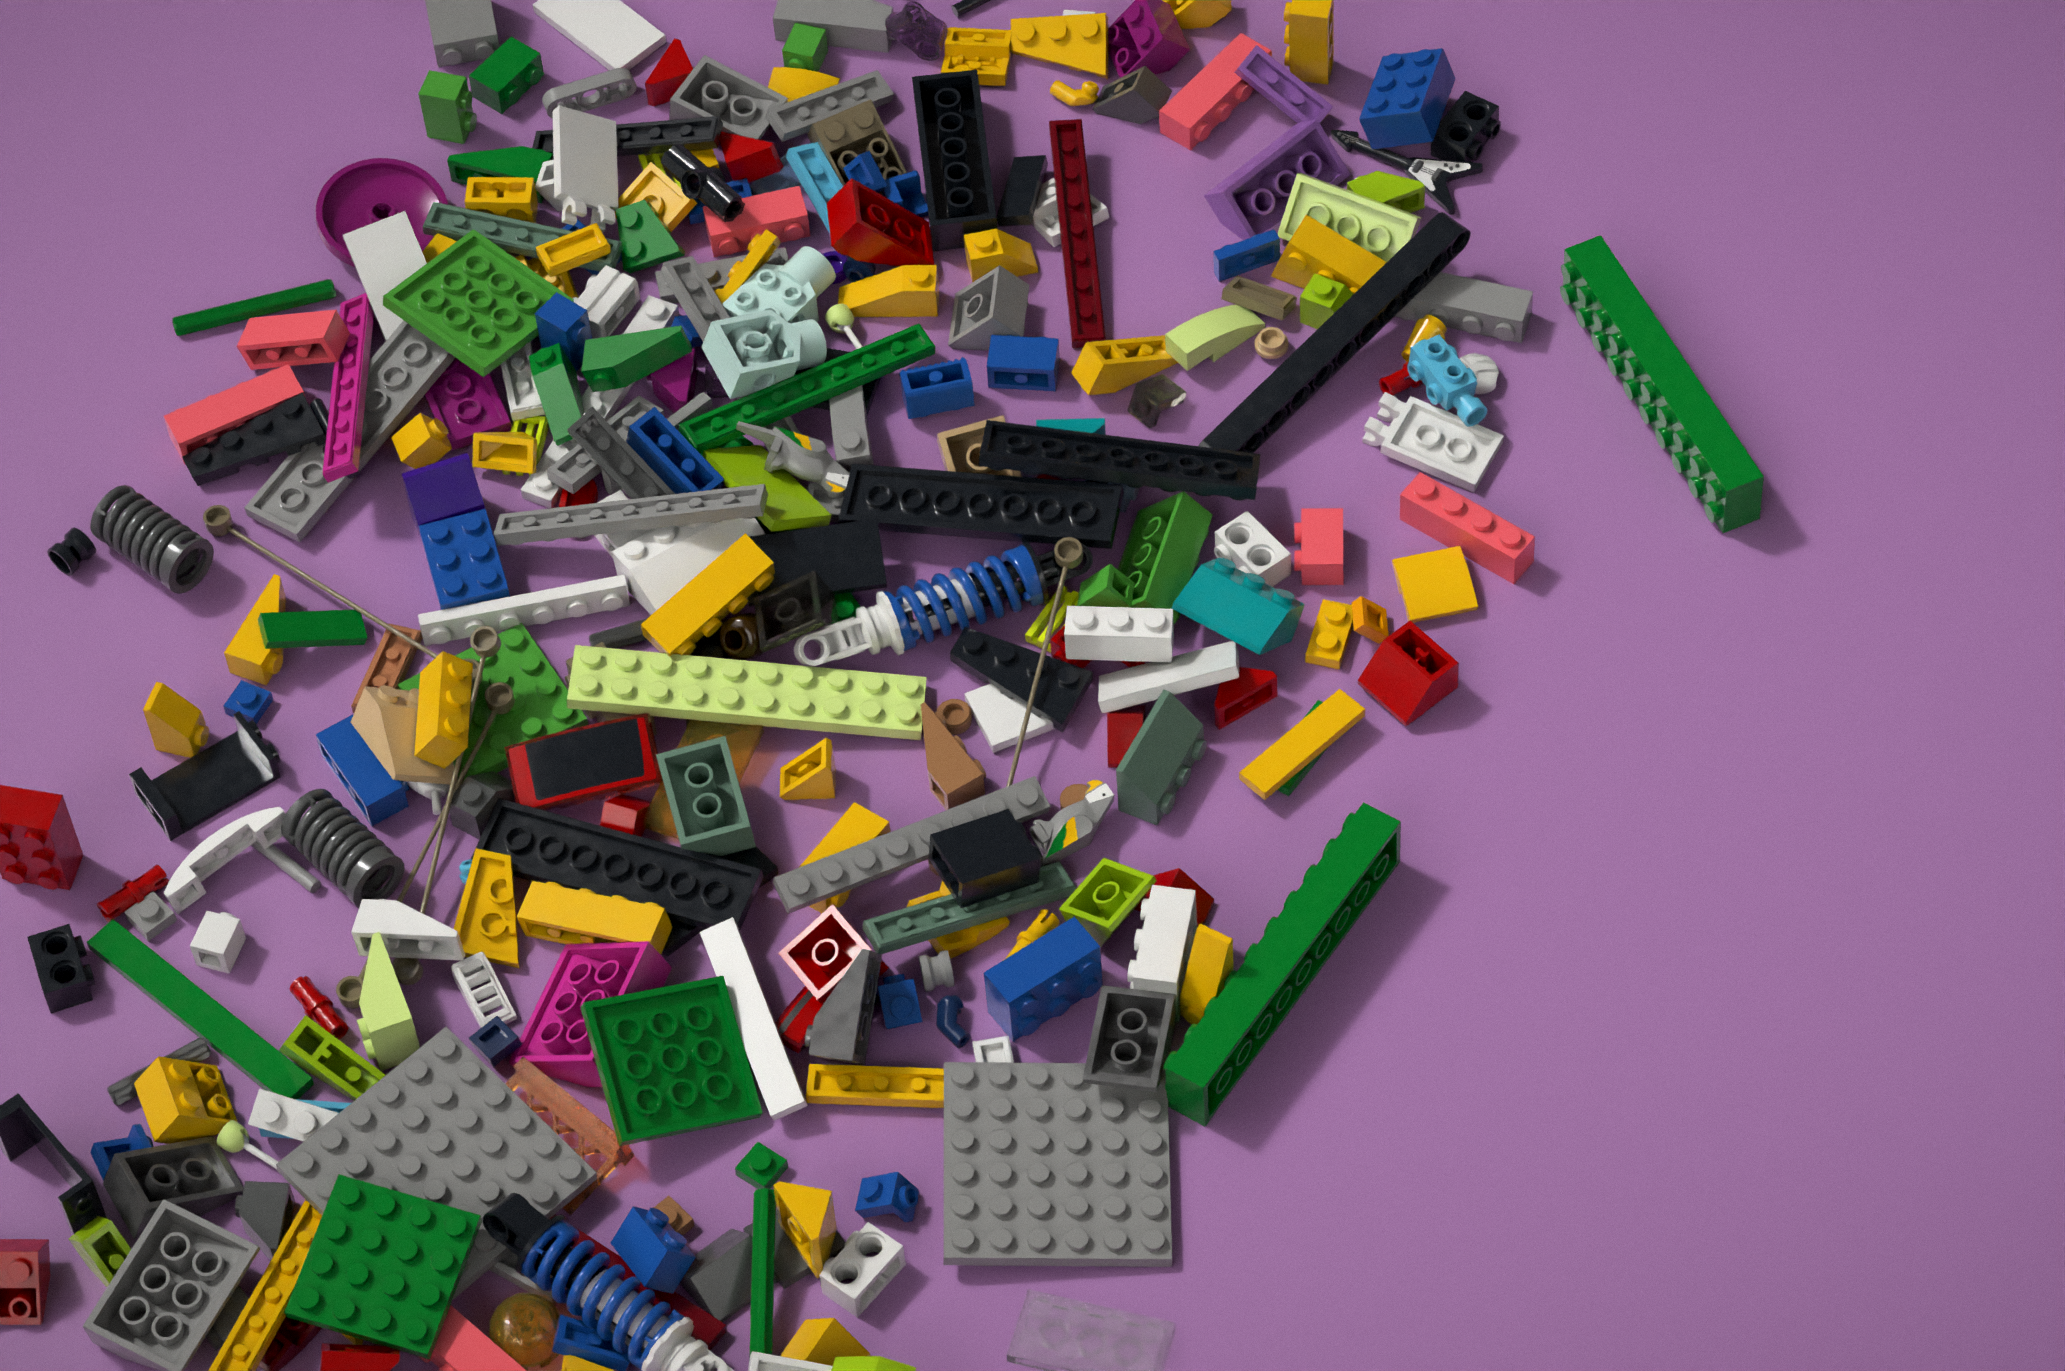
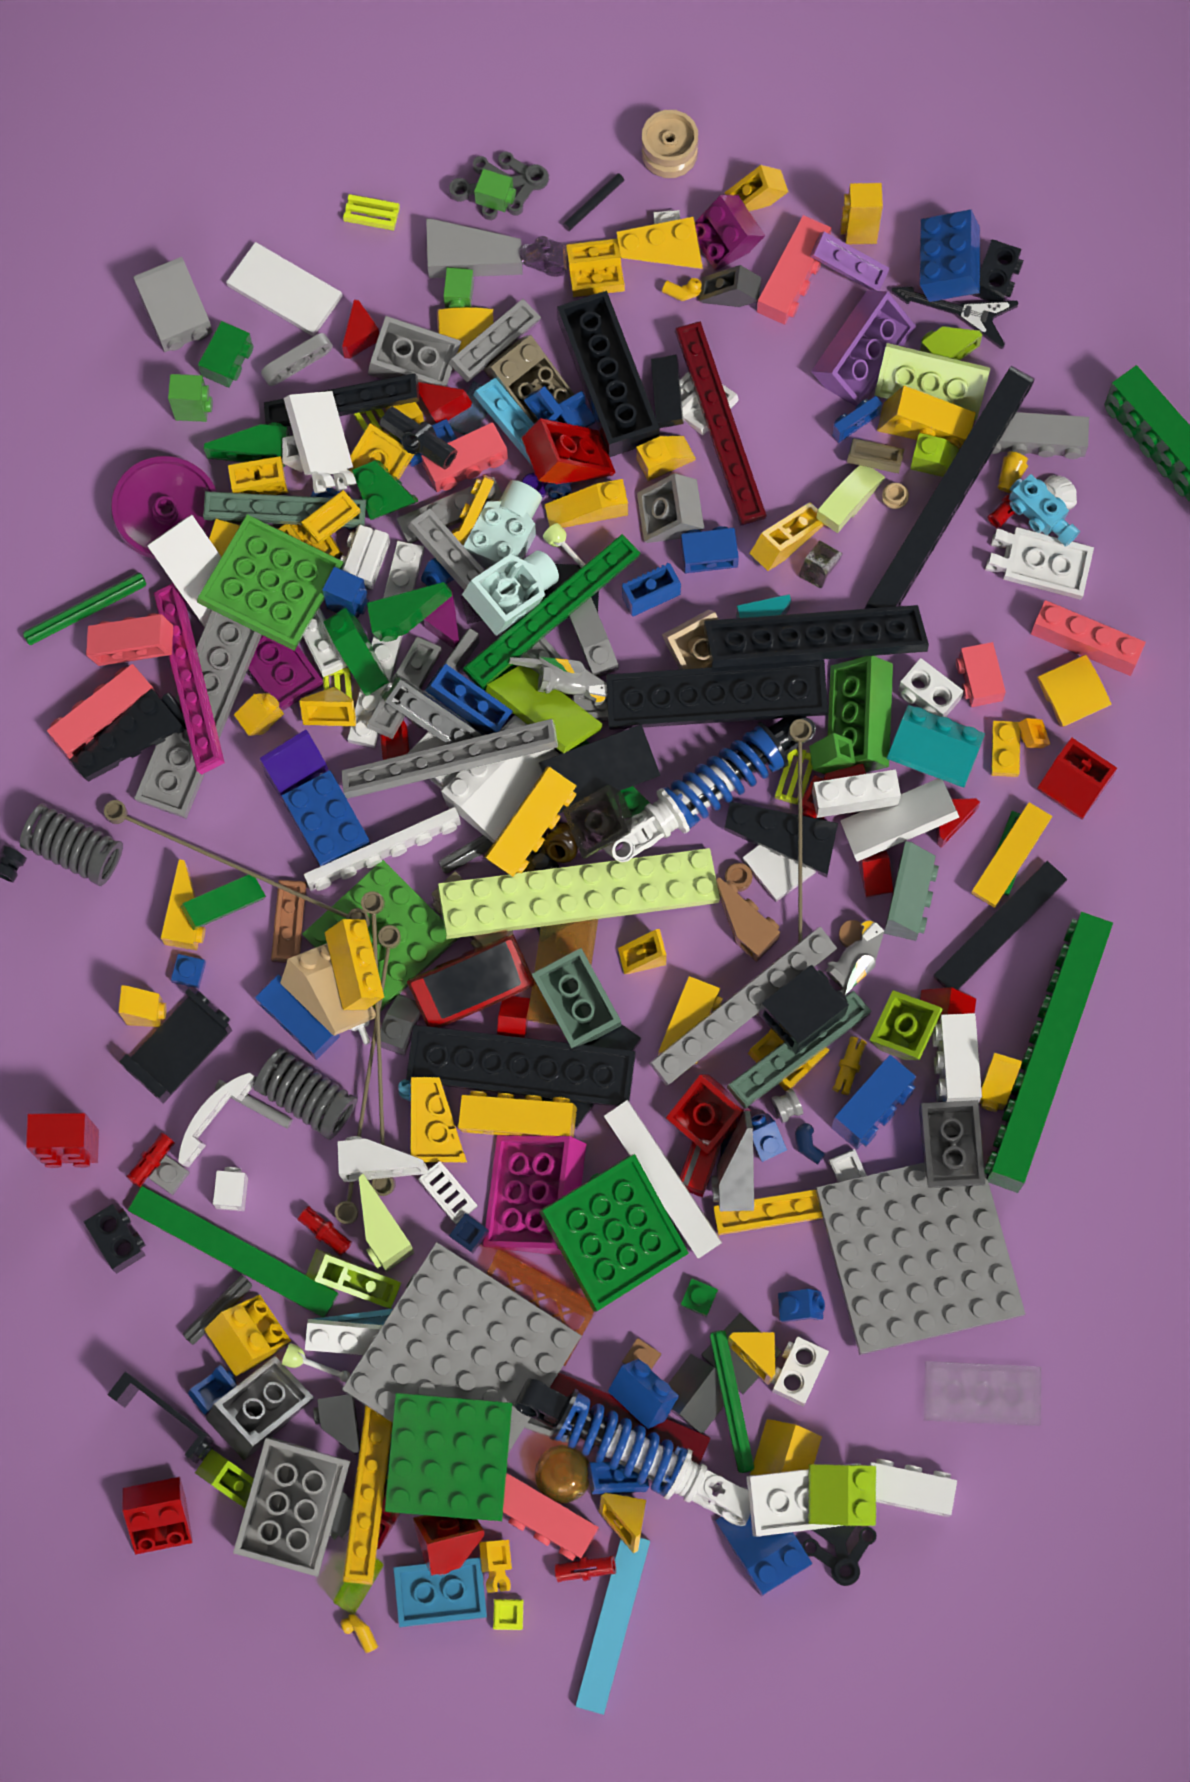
camera: 15 degrees left, 20 degrees up
(1270, 824) = (1001, 926): none -> black tile

